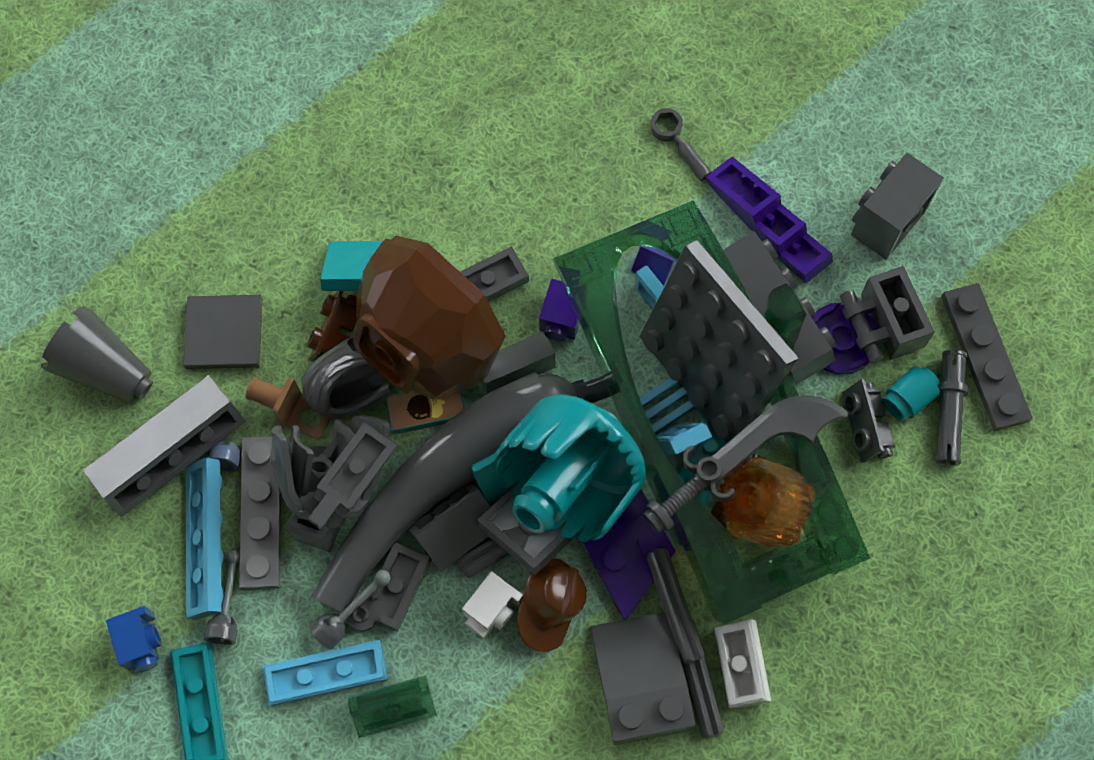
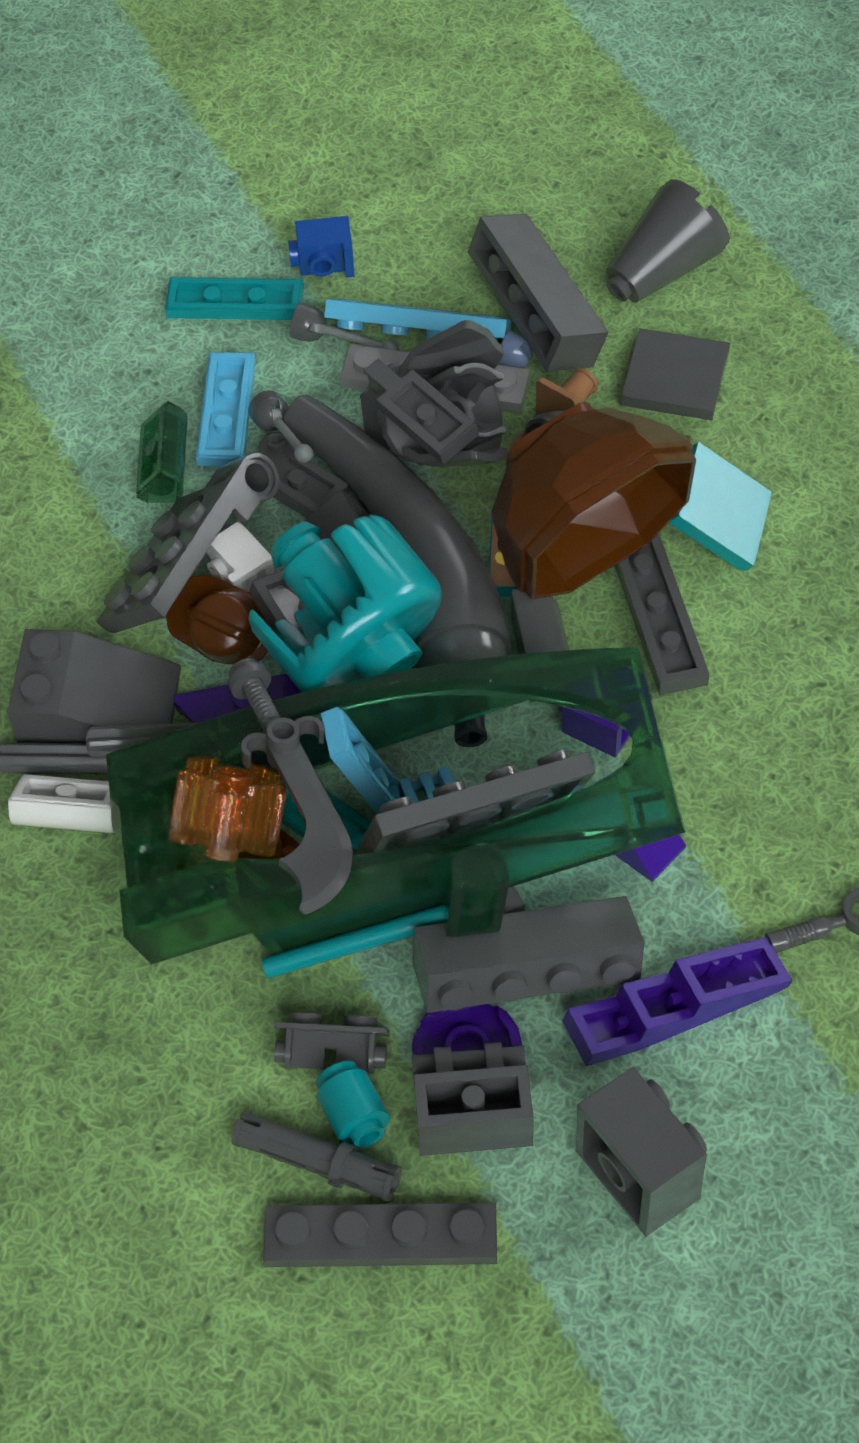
camera: 105 degrees right, 15 degrees down
(435, 620) = (183, 538): none -> dark grey hinge

